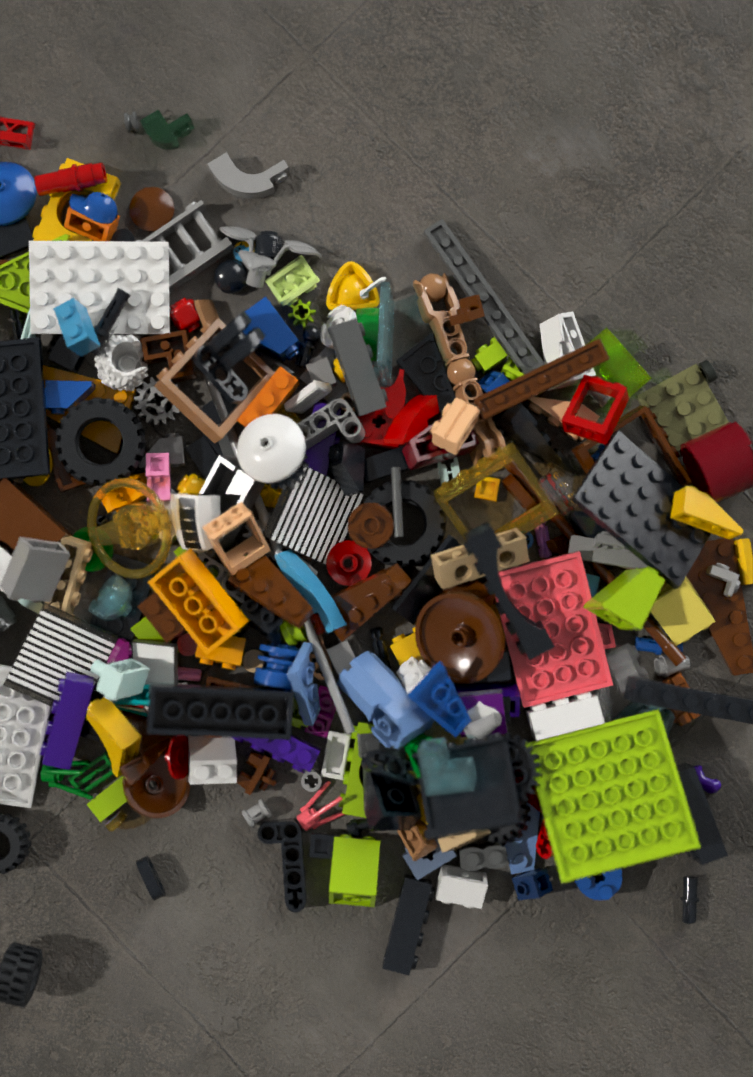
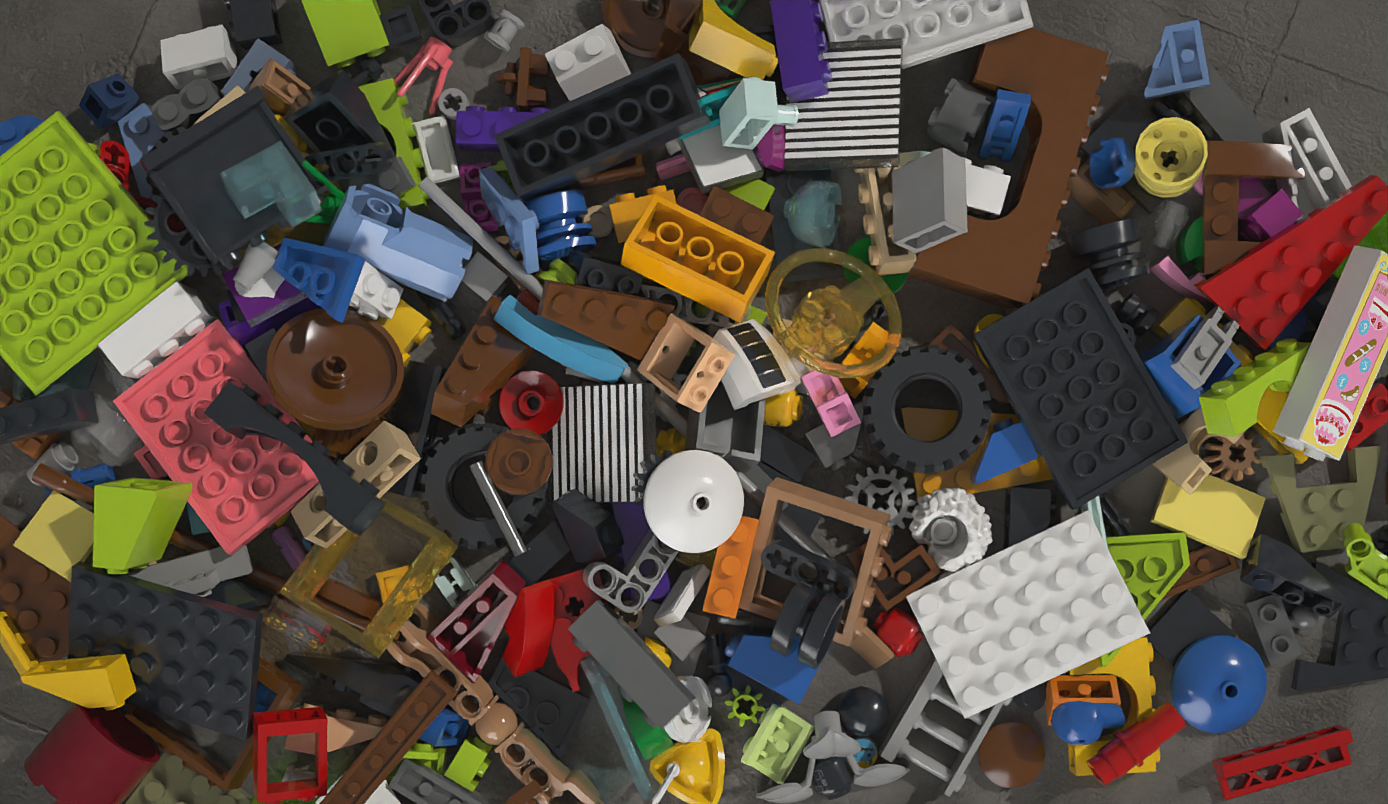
camera: 155 degrees right, 0 degrees up
(76, 327) = (1028, 544): dark azure brick -> none
(109, 318) = (994, 556): black pin -> none
(177, 757) = (634, 48): red dish -> none
(455, 425) = (464, 645): light nougat brick -> none
(558, 545) = (265, 552): reddish brown tile -> none
(722, 573) = (14, 609): light grey bracket -> none

